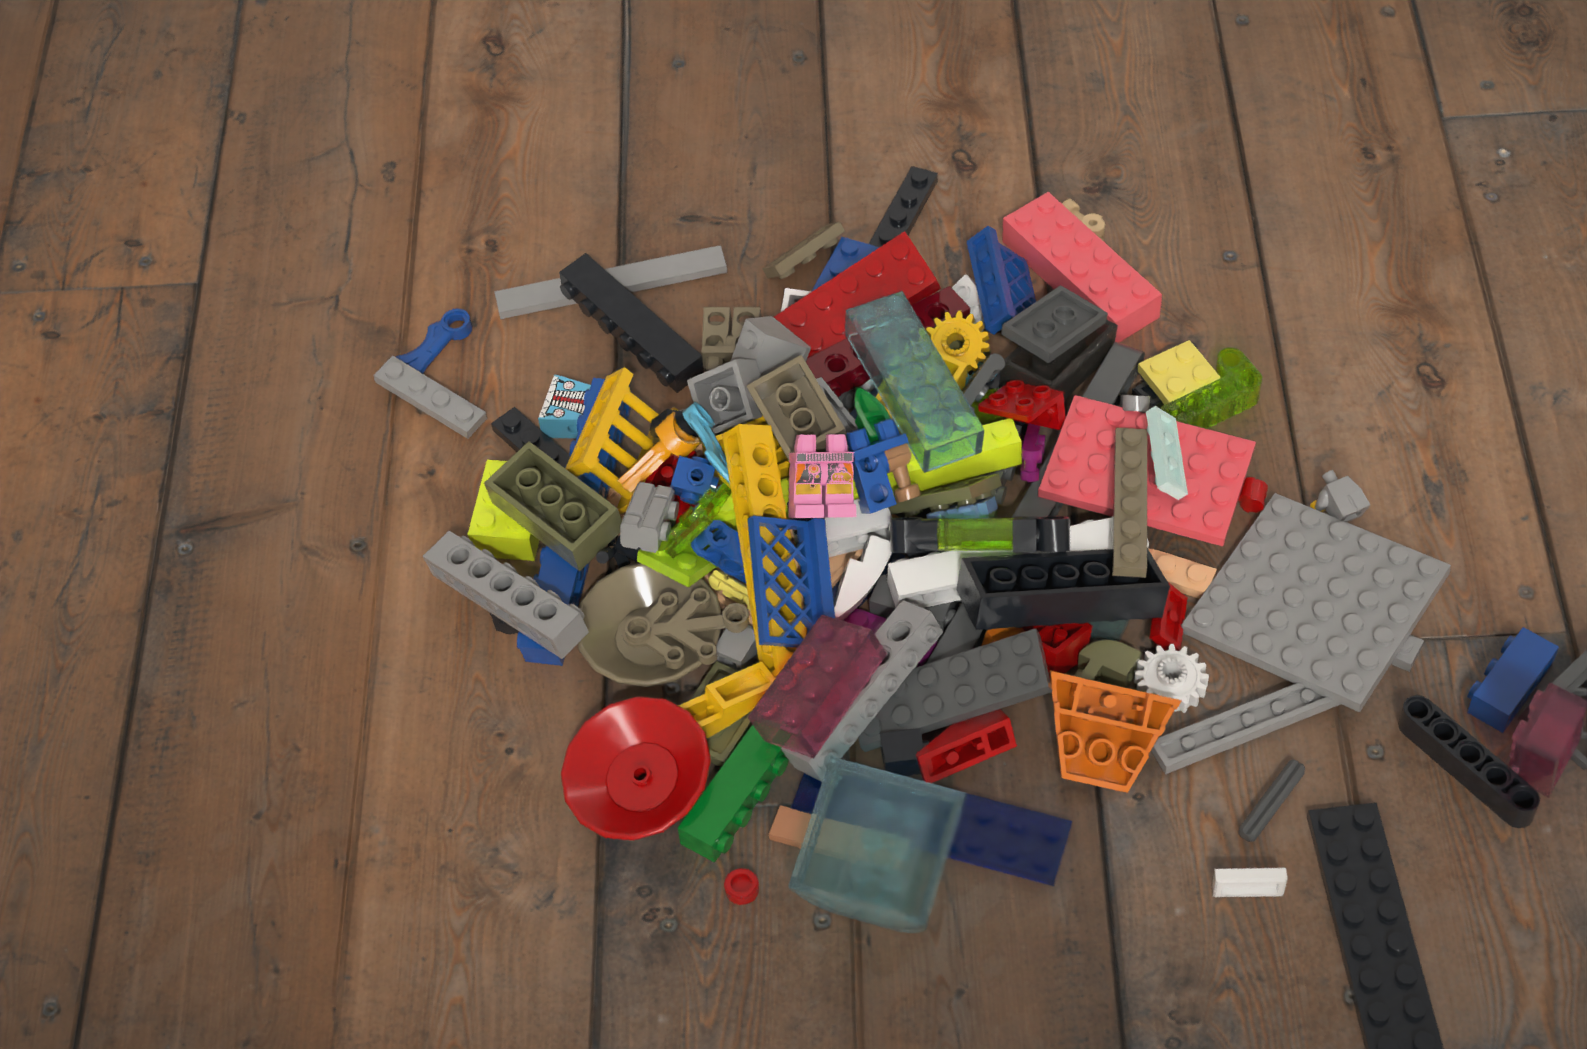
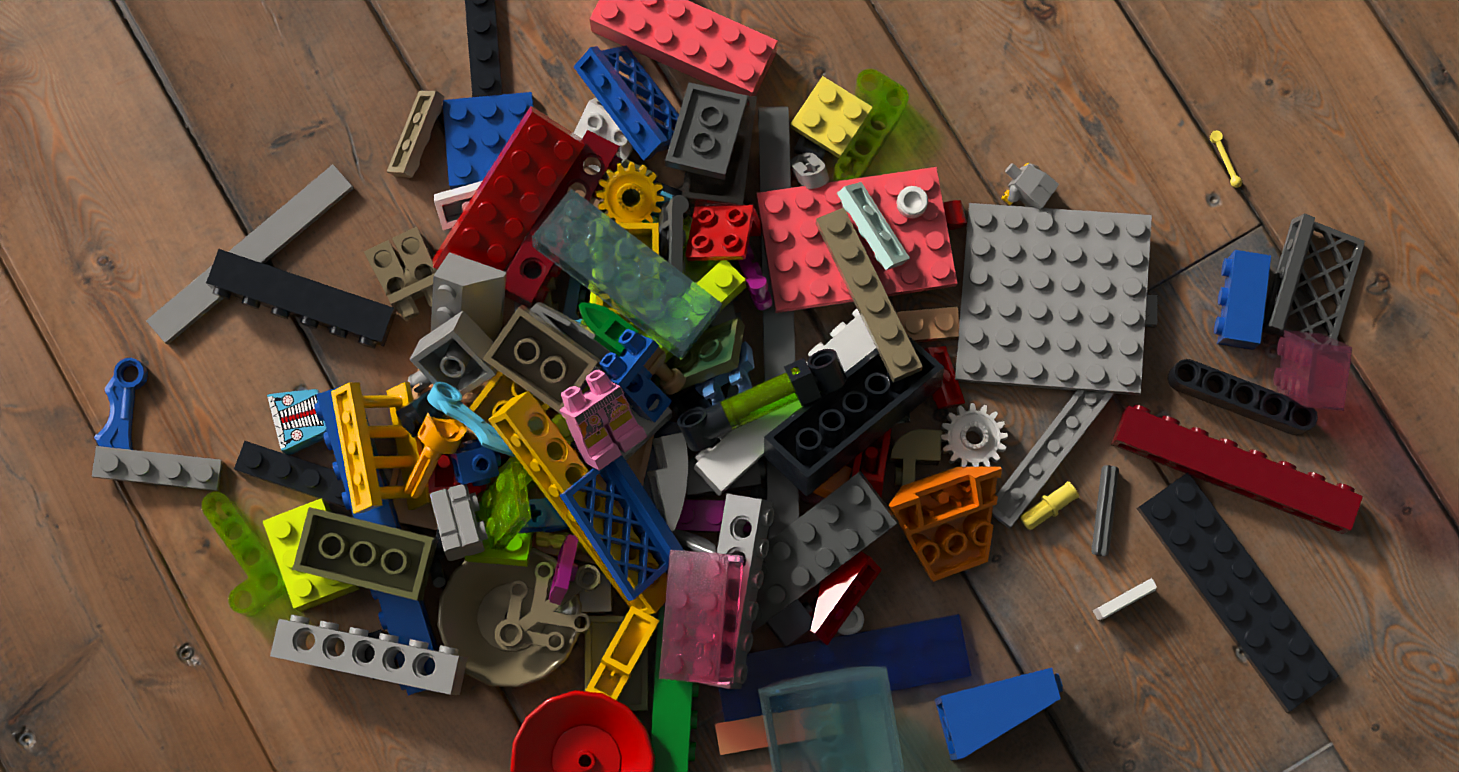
camera: 35 degrees left, 25 degrees up
(455, 511) = (240, 549): none -> clear neon green beam
(717, 598) = (564, 570): none -> magenta plate
(963, 781) = (853, 622): none -> white tile
(1060, 909) = (987, 711): none -> blue slope
(1215, 453) = (912, 202): none -> white tile
(1216, 770) = (1049, 506): none -> light yellow axle
(1432, 823) = (1236, 469): none -> dark red brick
(1555, 542) = (1216, 137): none -> light yellow hinge

